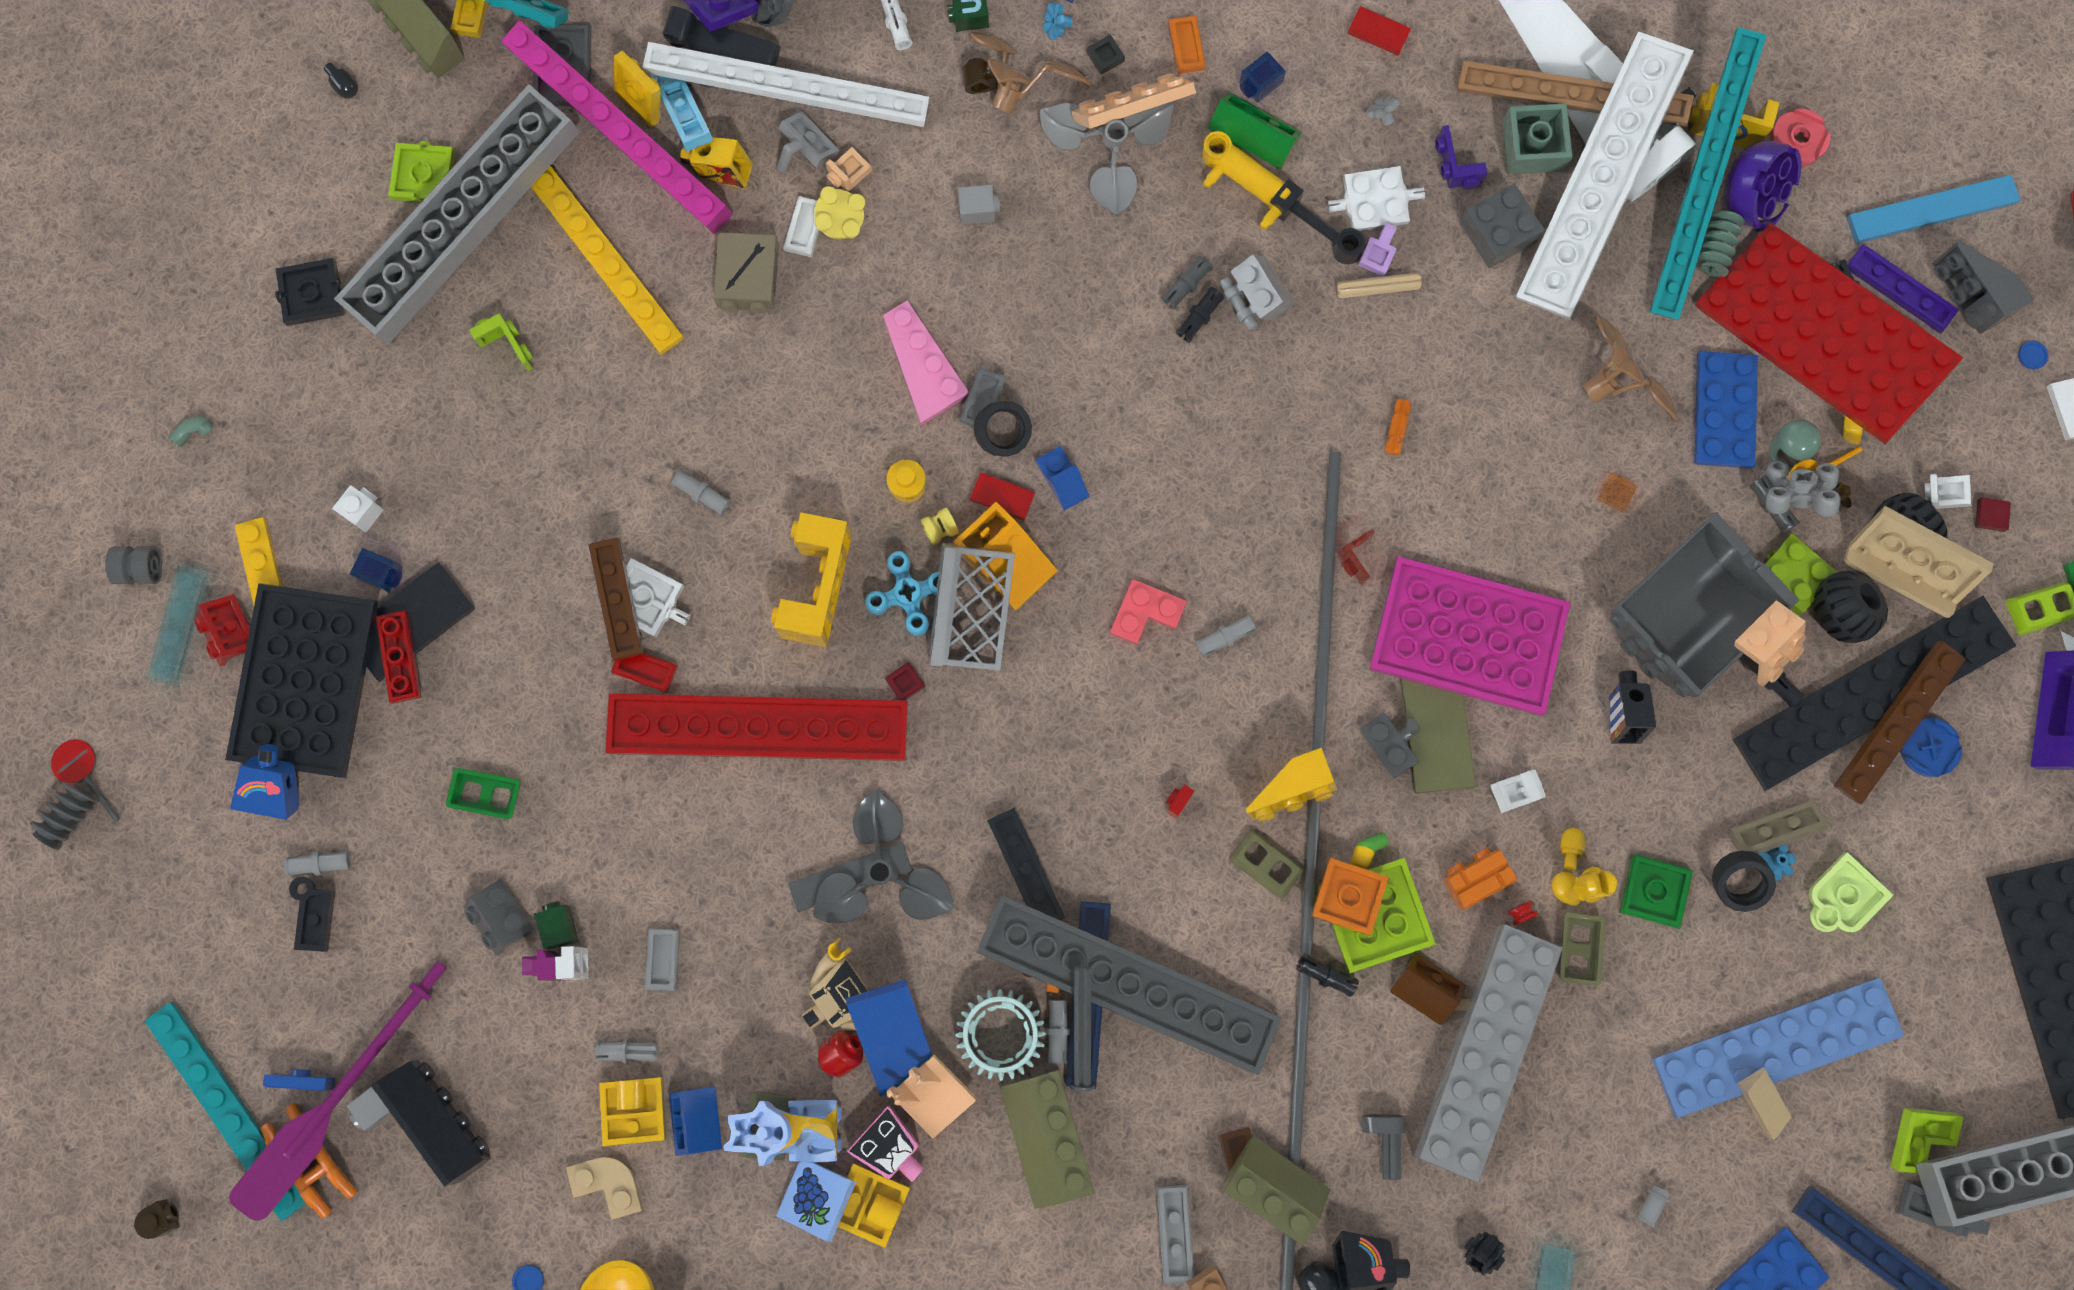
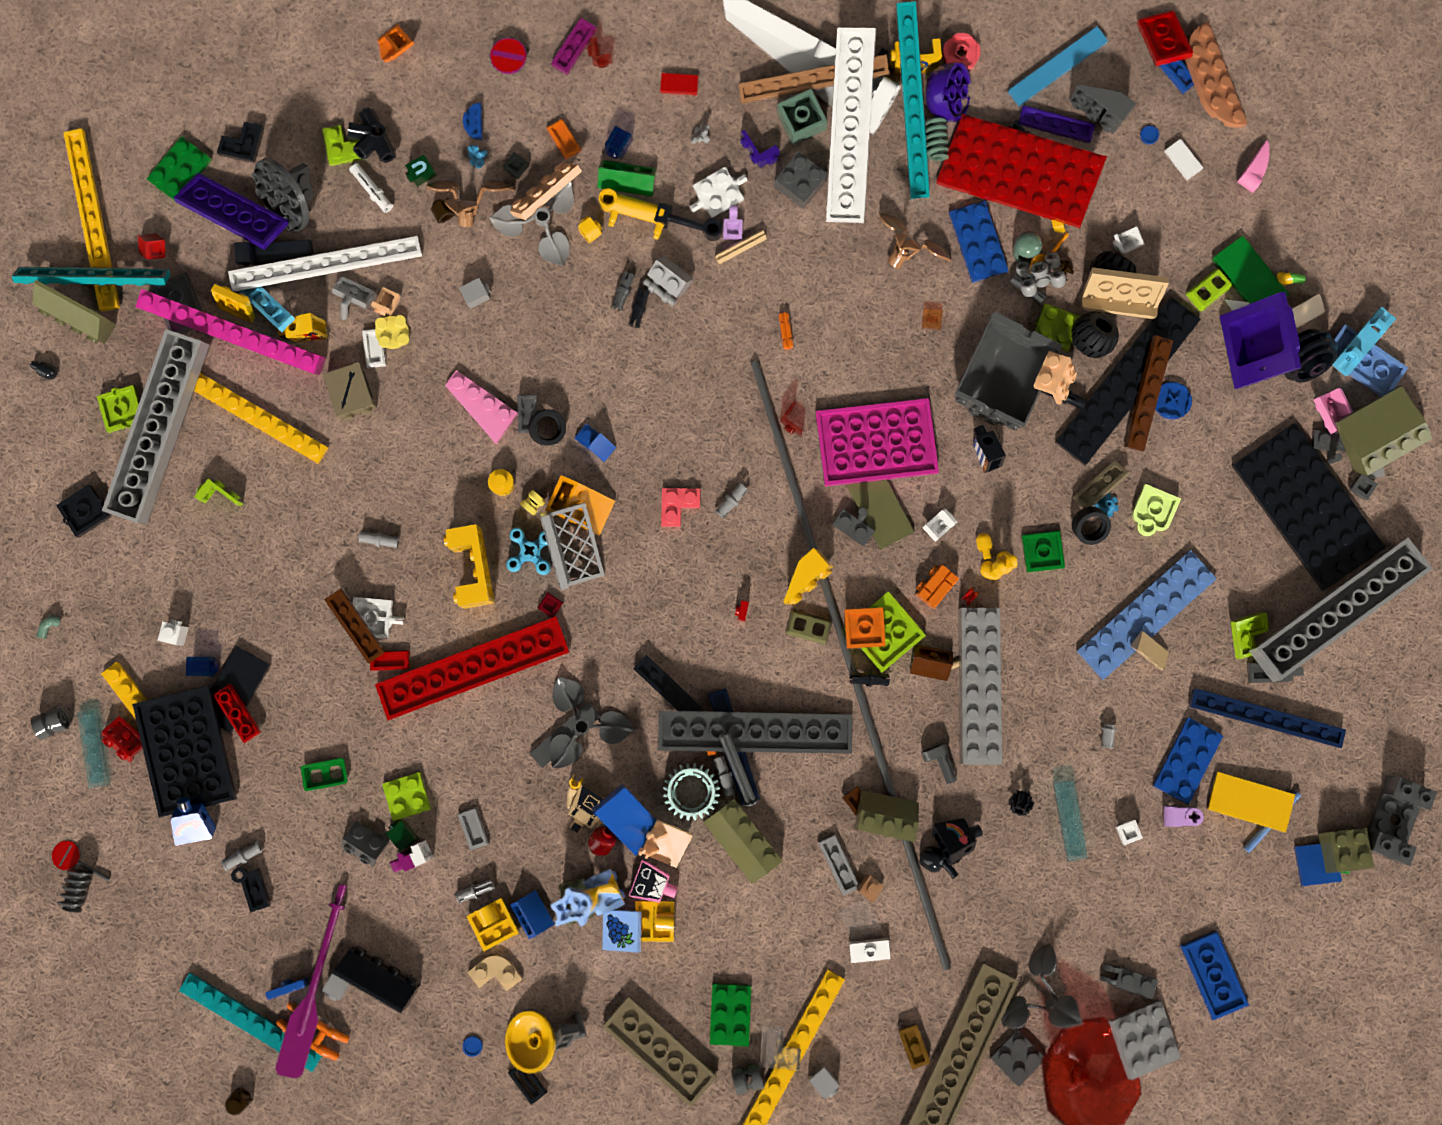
camera: 20 degrees left, 5 degrees up
(586, 873) = (406, 796): none -> lime plate
(1010, 497) = (566, 467): red tile -> none
(1174, 179) = (589, 229): none -> yellow plate
(1366, 848) = (863, 595): arm -> none
(1592, 950) = (1019, 602): olive piece -> none
(1992, 514) = (1159, 244): dark red tile -> none

